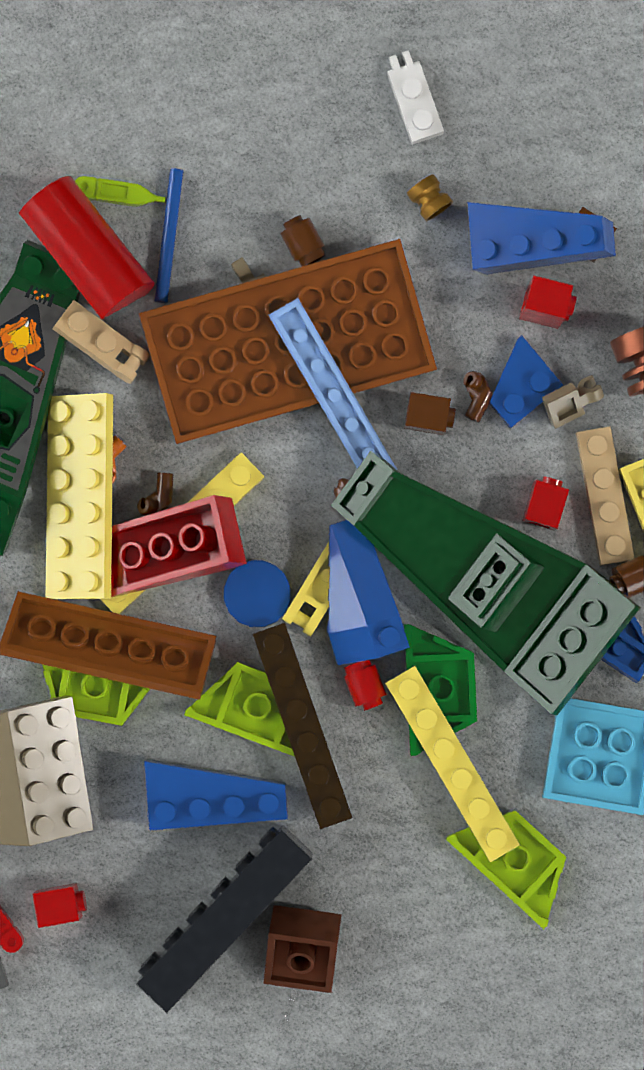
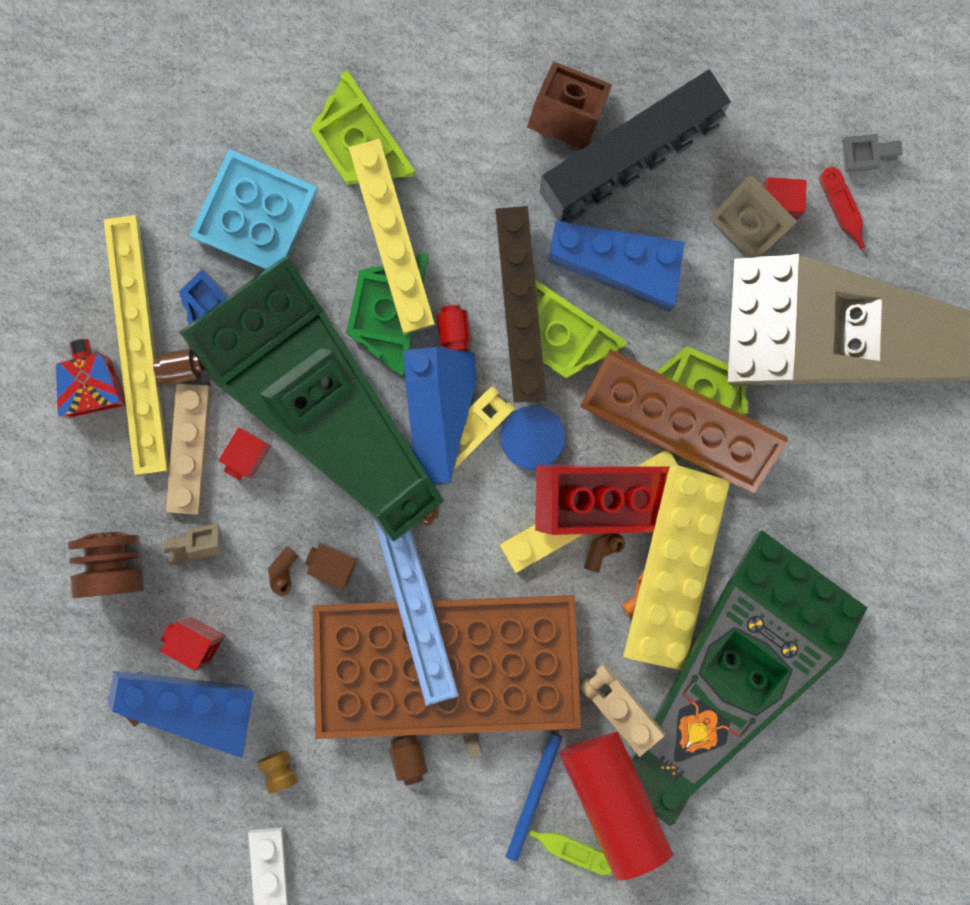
camera: 165 degrees left, 0 degrees up
(84, 873) = (752, 218): none -> dark tan plate
(522, 384) = (237, 572): blue wing -> none

